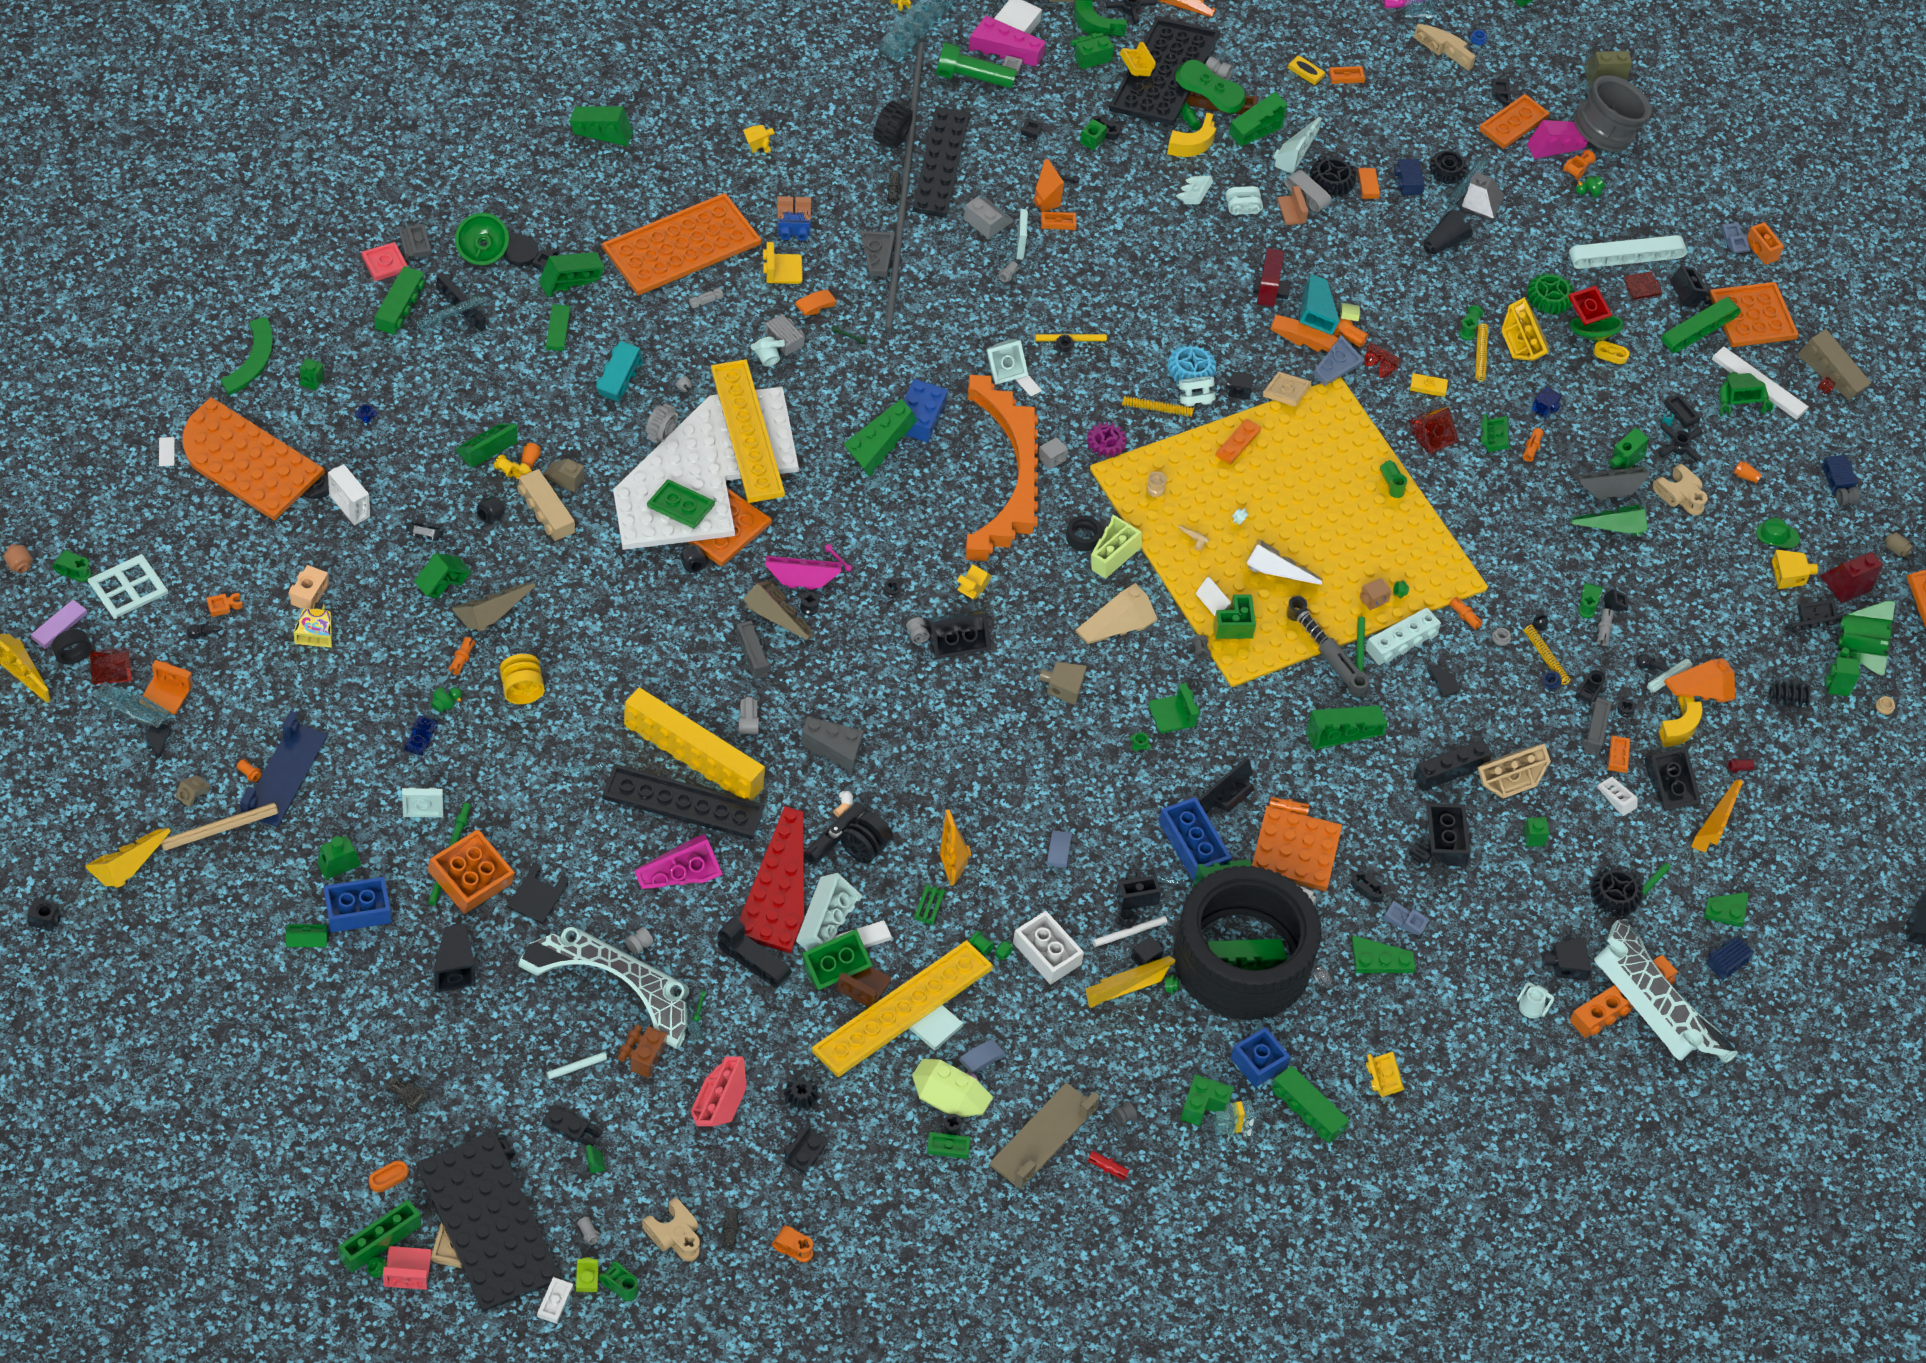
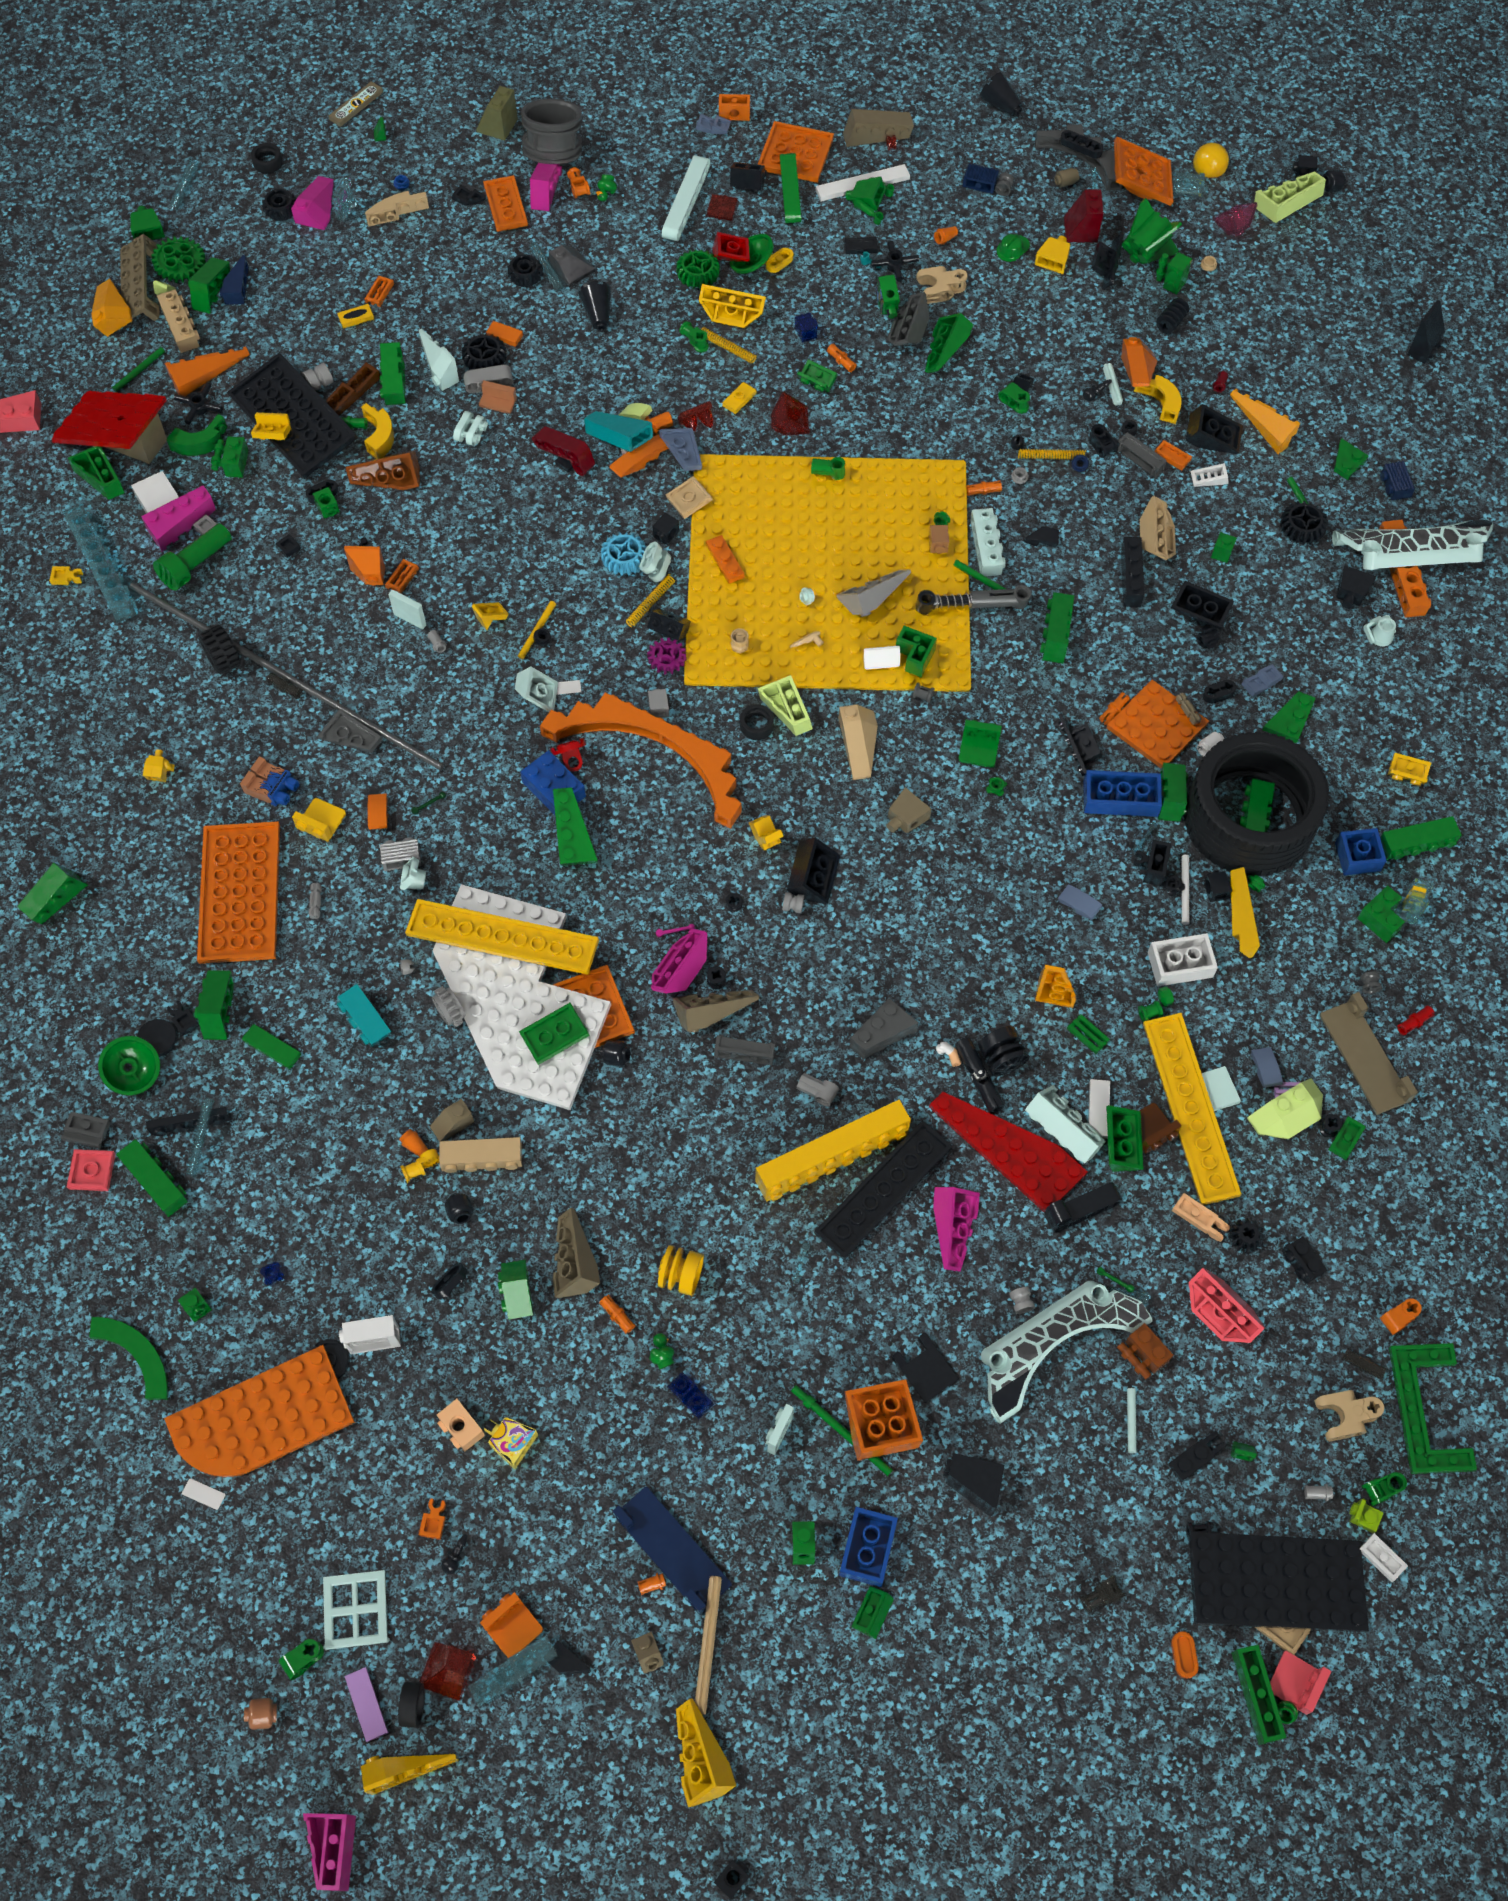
camera: 55 degrees left, 10 degrees up
(488, 443) = (373, 1174): green slope -> none
(752, 1260) = (1420, 1456): none -> green plate
(799, 1050) = (1200, 1216): none -> light nougat hinge
(940, 162) = (278, 634): black plate -> none
(959, 406) = (569, 750): none -> red tile
(986, 217) = (365, 629): light grey slope -> none
(1059, 291) = (488, 612): none -> yellow slope
(1138, 426) = (668, 624): none -> black brick
(1158, 165) = (394, 471): none -> dark orange wedge
(1195, 190) = (435, 458): light aqua plate -> none
(1200, 79) = (327, 392): green plate -> none
(1324, 861) = (1188, 708): none -> dark tan axle
(1409, 177) = (518, 301): dark blue brick -> none
(1605, 627) = (1046, 401): light grey pin -> none

